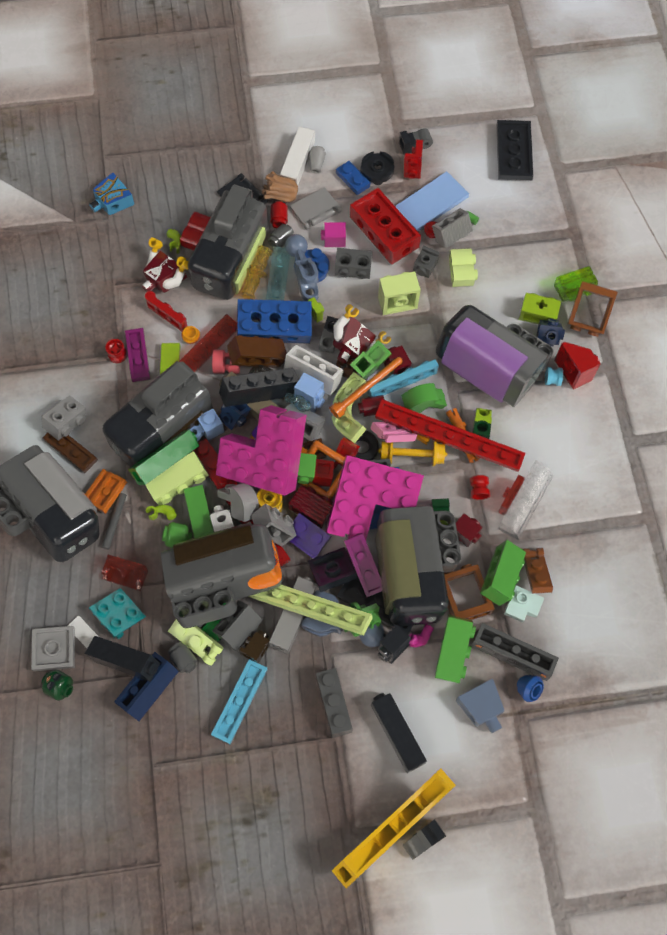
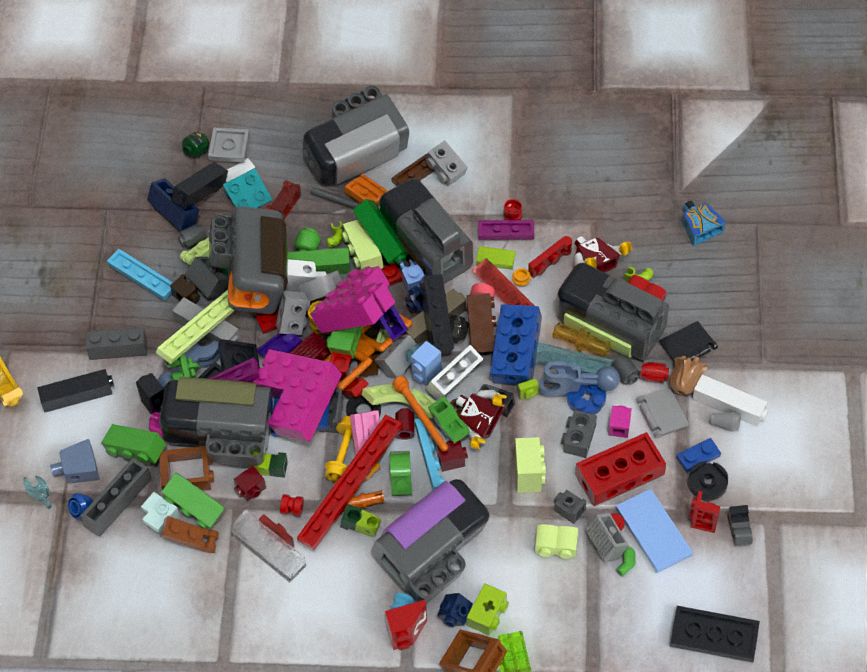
camera: 105 degrees right, 10 degrees down
(522, 738) = (39, 492): none -> clear light blue hand

